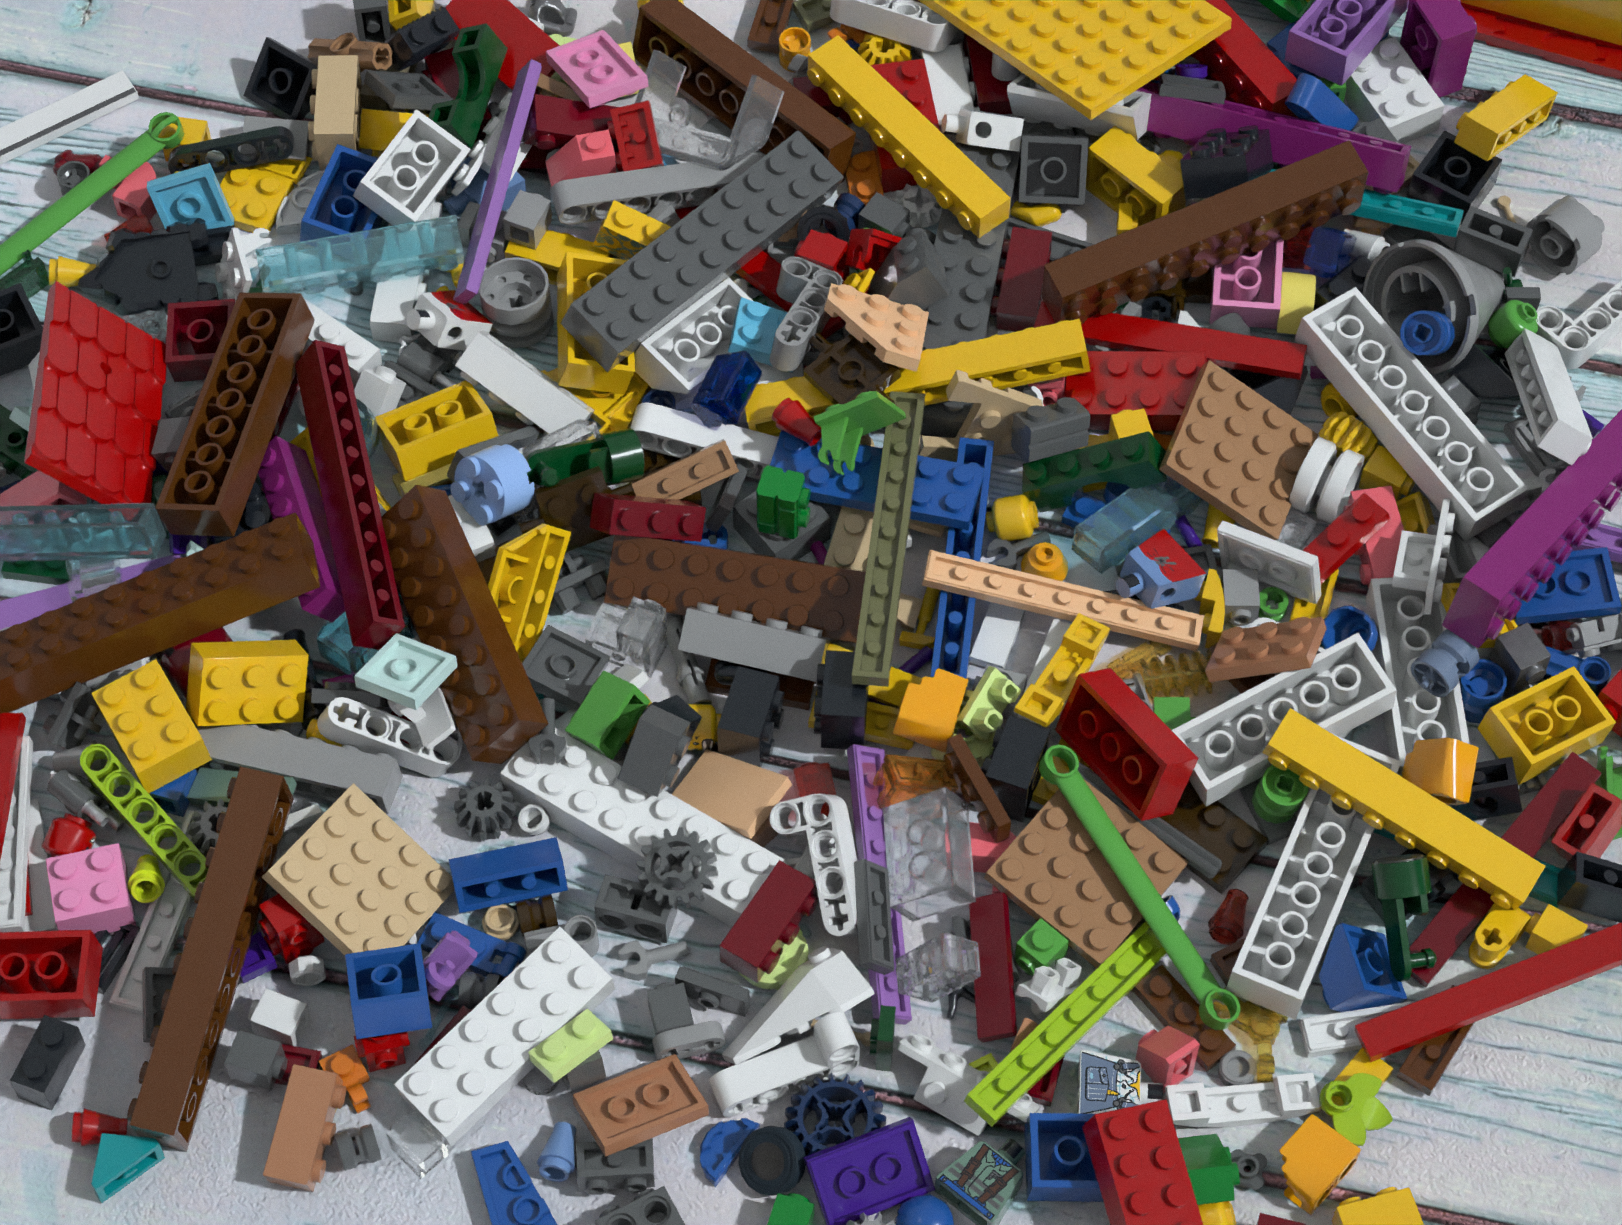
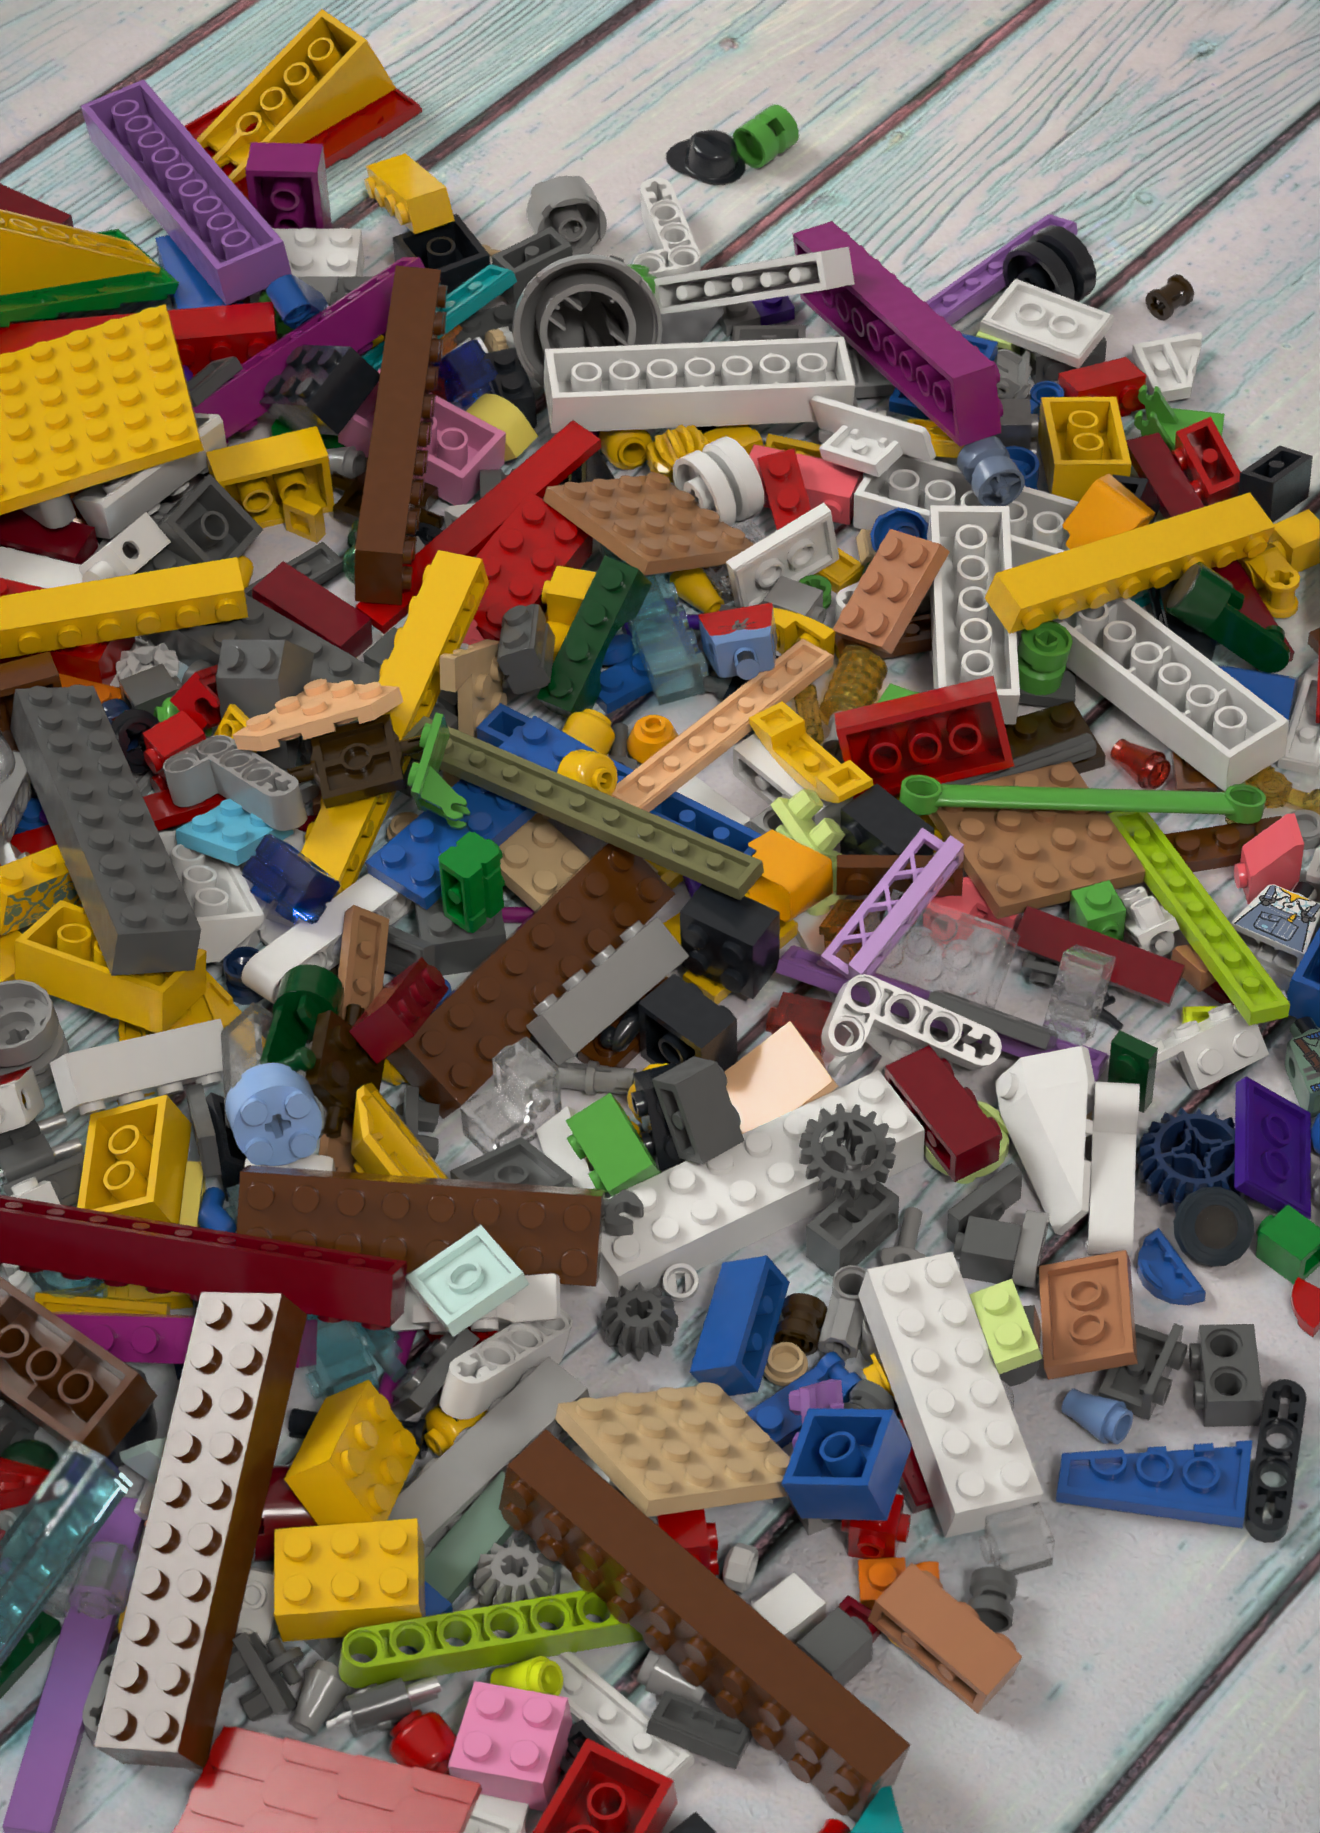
camera: 60 degrees left, 10 degrees down
(795, 420) = (377, 834): red cone -> none
(921, 801) = (901, 912): none -> lavender fence
(932, 529) = (590, 769): none -> yellow head
(1427, 333) = (634, 321): blue wheel -> none

